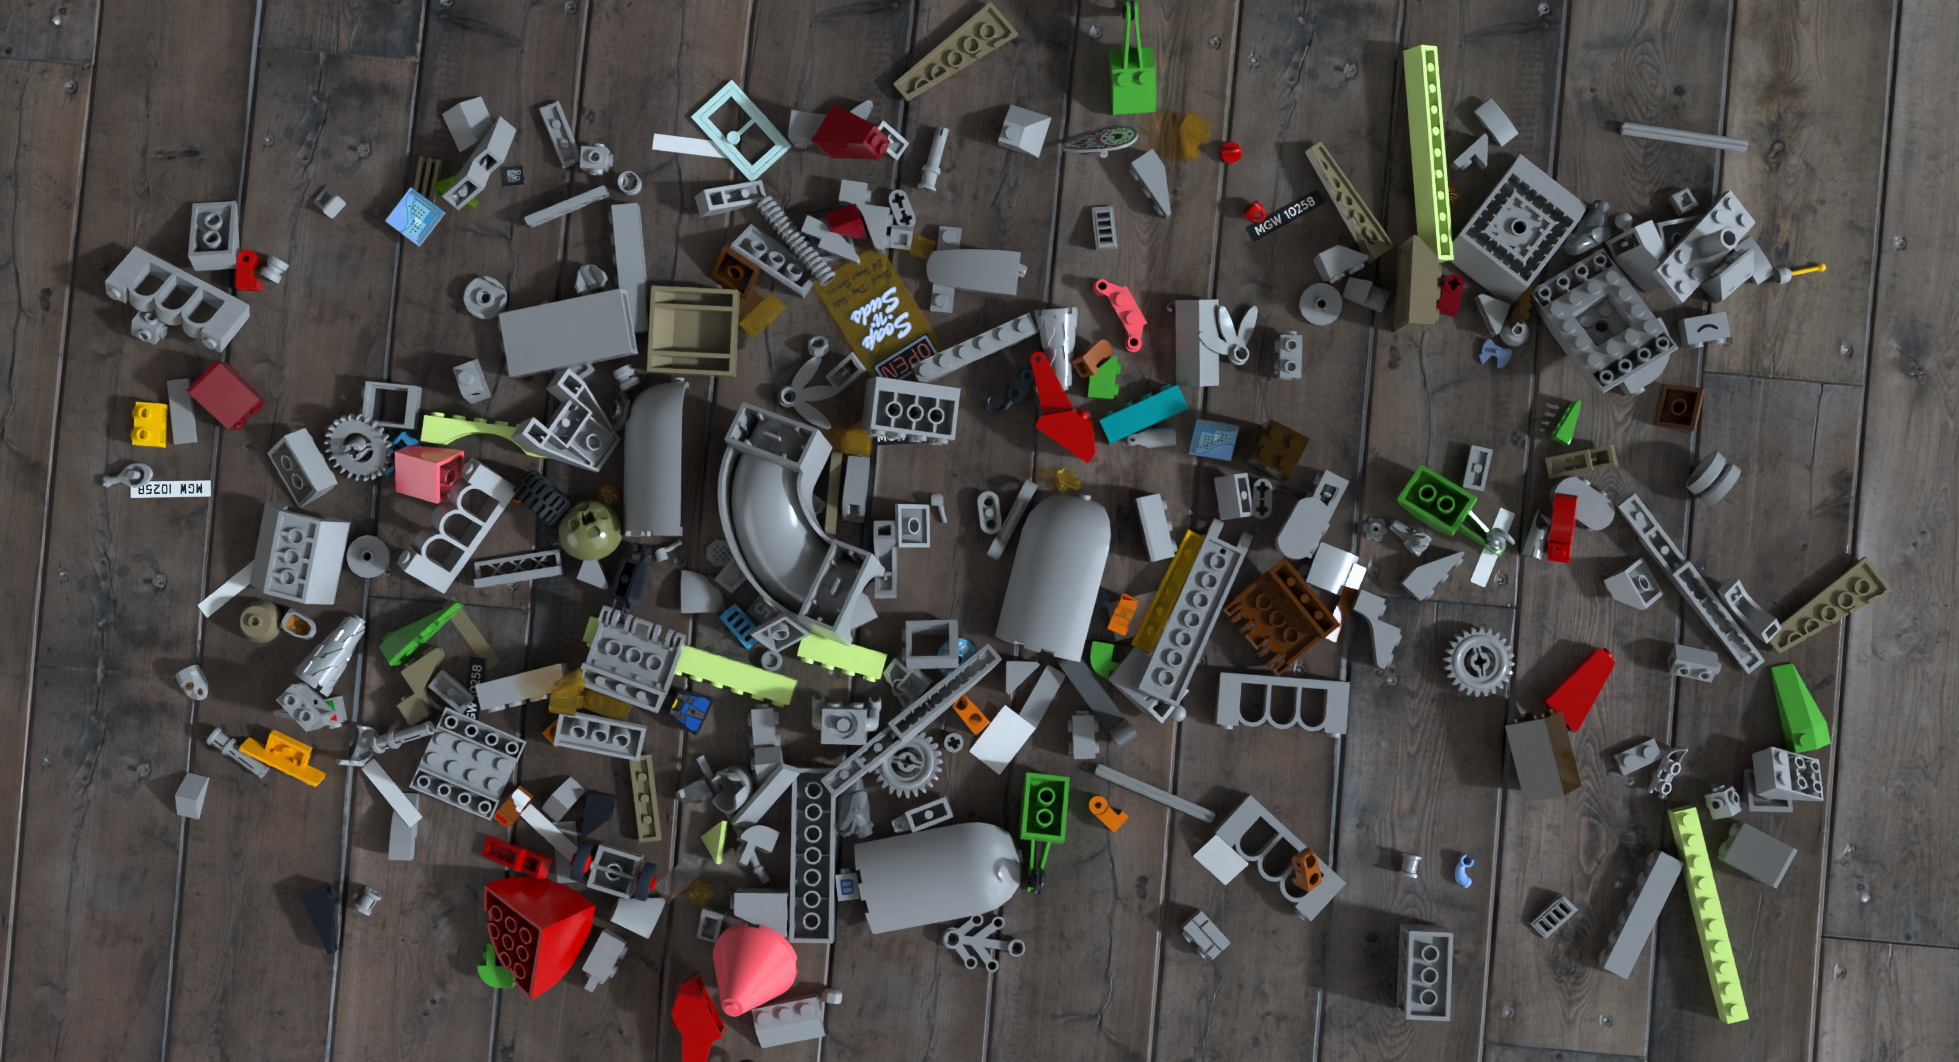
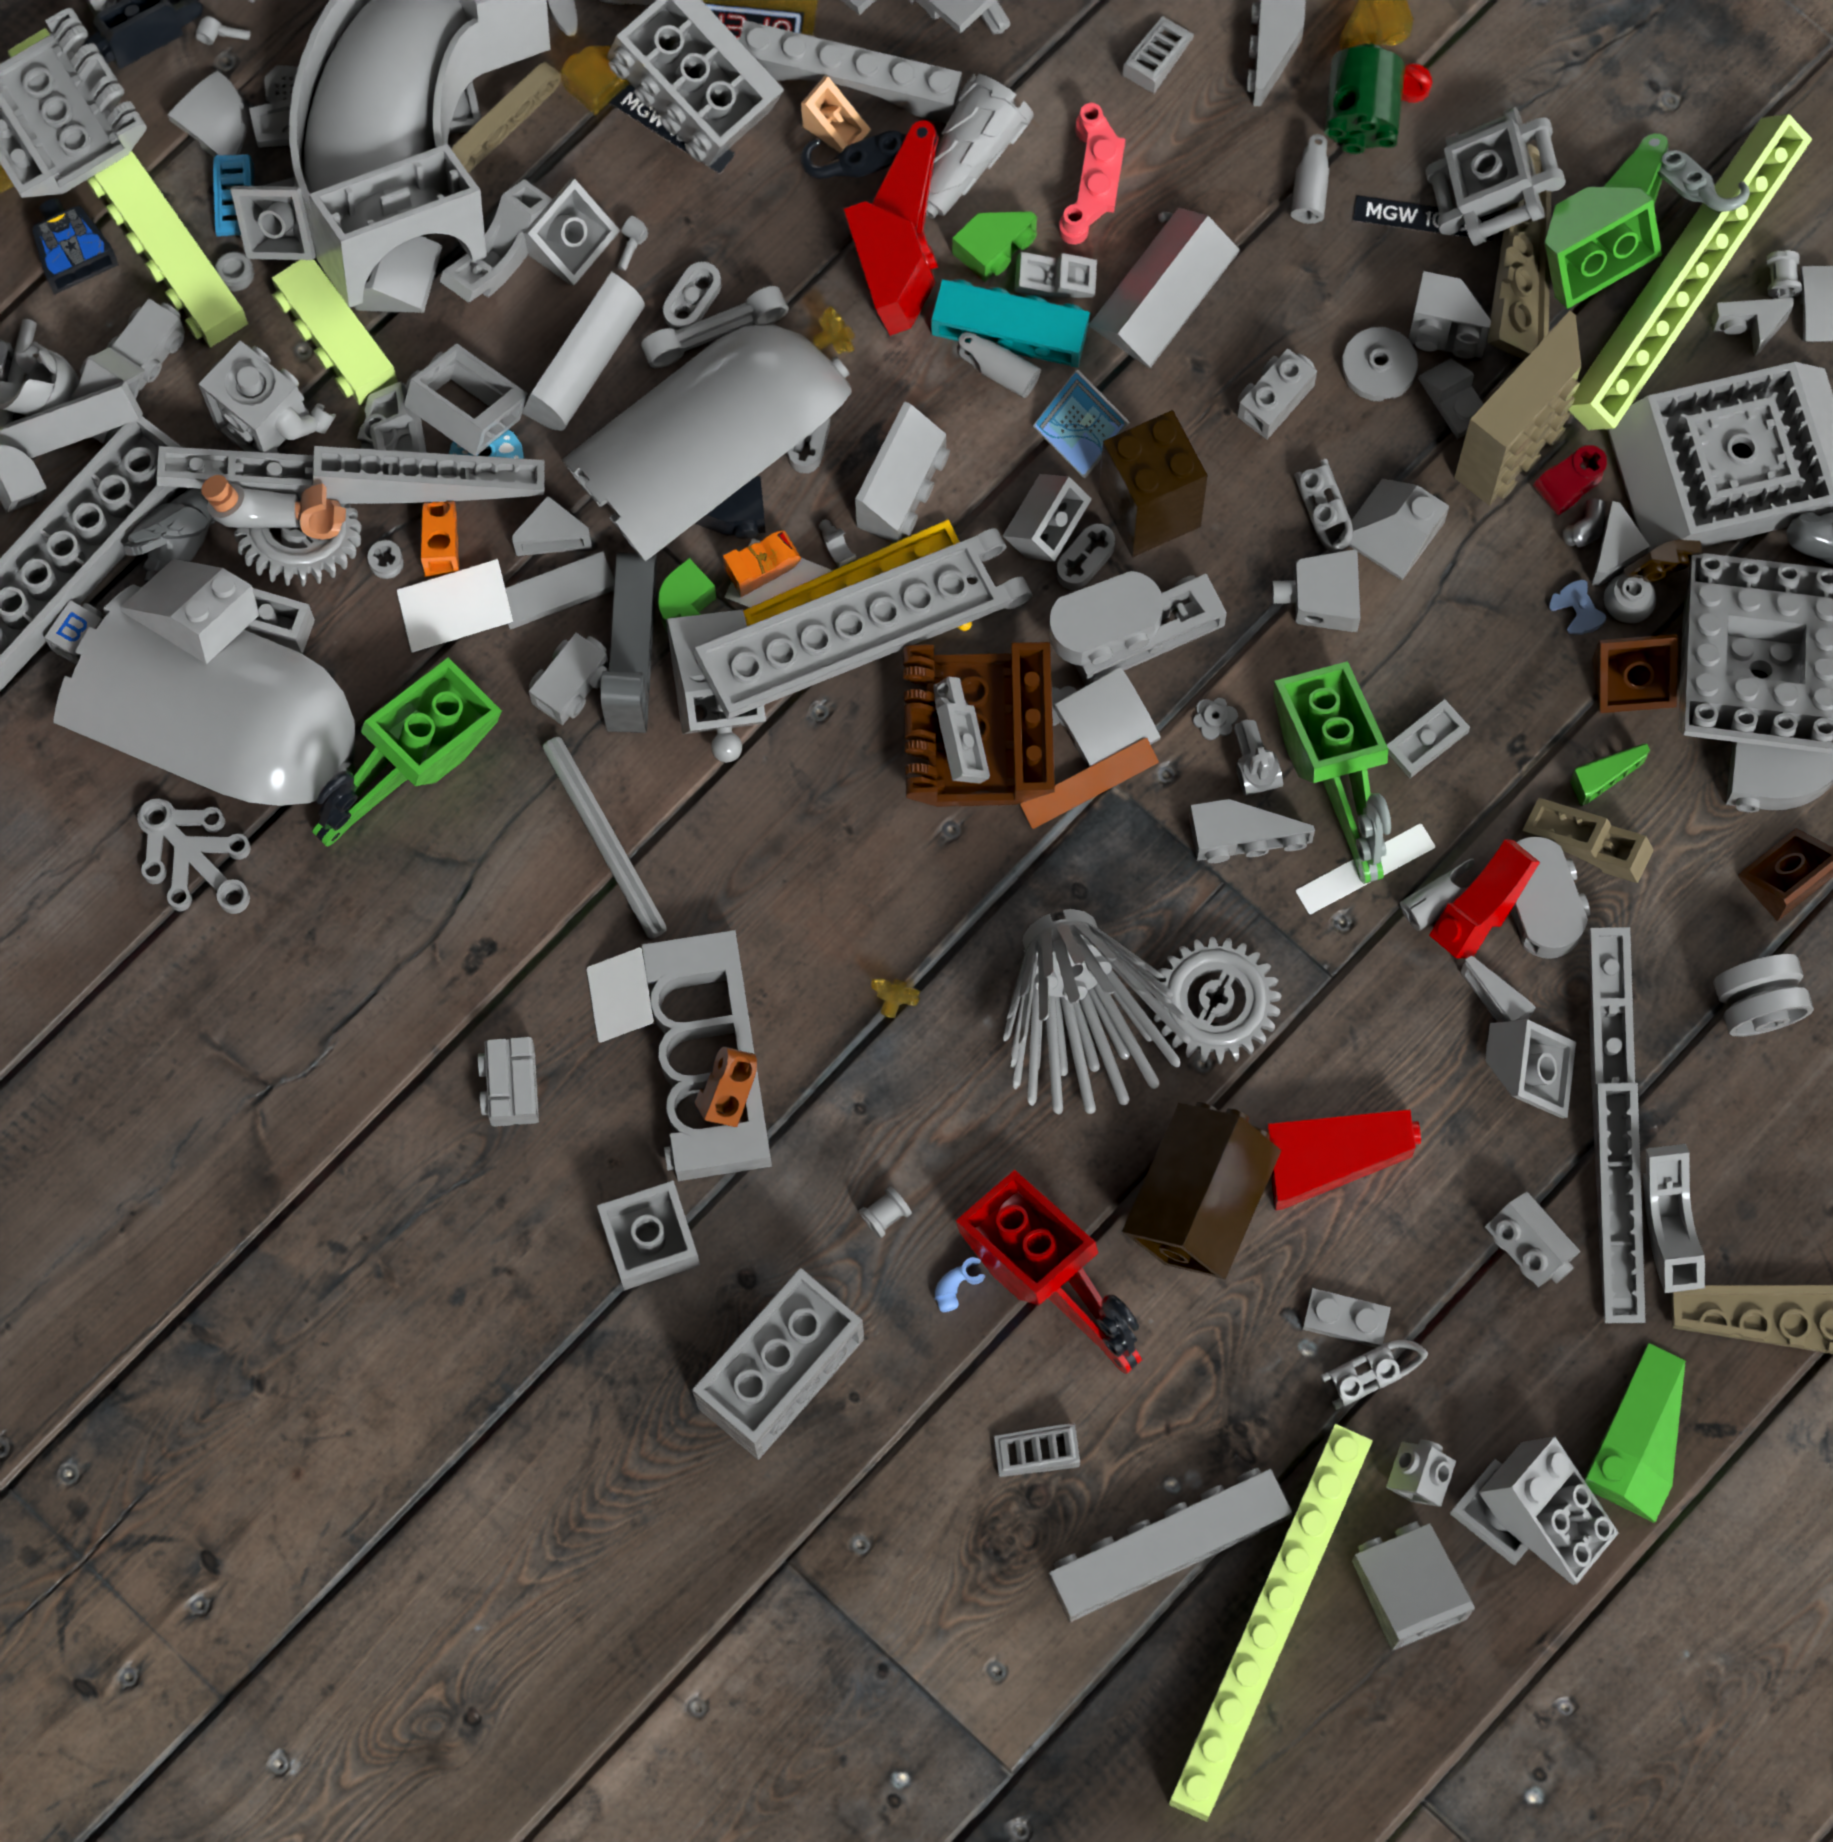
camera: 40 degrees right, 15 degrees down
(856, 488) = (536, 132): light grey slope -> none
(886, 771) = (267, 509): none -> piece
(897, 841) = (194, 607): none -> light grey slope
(965, 580) = (584, 354): none -> light grey brick
(985, 376) = (832, 117): none -> light nougat slope
(1090, 356) = (991, 190): dark orange leg -> none
(1100, 808) = (511, 799): orange leg -> none
(1143, 374) = (1052, 277): none -> light grey slope
(1147, 579) = (836, 544): none -> light grey piece
(1219, 181) = (1364, 98): none -> dark green cylinder
(1223, 239) = (1311, 183): none -> light grey piece
(1232, 343) = (1213, 322): light grey plant -> none
(1250, 212) = (1383, 172): red tile -> none
(1276, 628) = (960, 733): none -> light grey hinge
(1308, 176) = (1494, 171): none -> light grey brick
(1320, 956) = (648, 1235): none -> light grey brick
(1334, 707) = (821, 779): light grey fence -> none
(1337, 765) = (894, 995): none -> clear yellow plant
(1353, 397) = (1326, 514): none -> light grey piece
(1380, 434) = (1323, 591): none -> light grey torso
(1382, 159) = (1614, 227): none -> bright green slope
(1382, 635) = (1108, 862): light grey arch -> none
(1386, 378) = (1396, 525): none -> light grey slope
(1414, 698) = (1073, 966): none -> light grey plant
(1454, 194) = (1682, 355): clear orange tile -> none
(1468, 121) = (1783, 274): none -> light grey bush
(1472, 312) = (1589, 528): none -> flat silver arm
(1496, 836) = (1036, 1251): none -> red slope
(1546, 368) = (1636, 673): none -> reddish brown slope
(1601, 565) = (1496, 994): none -> light grey slope

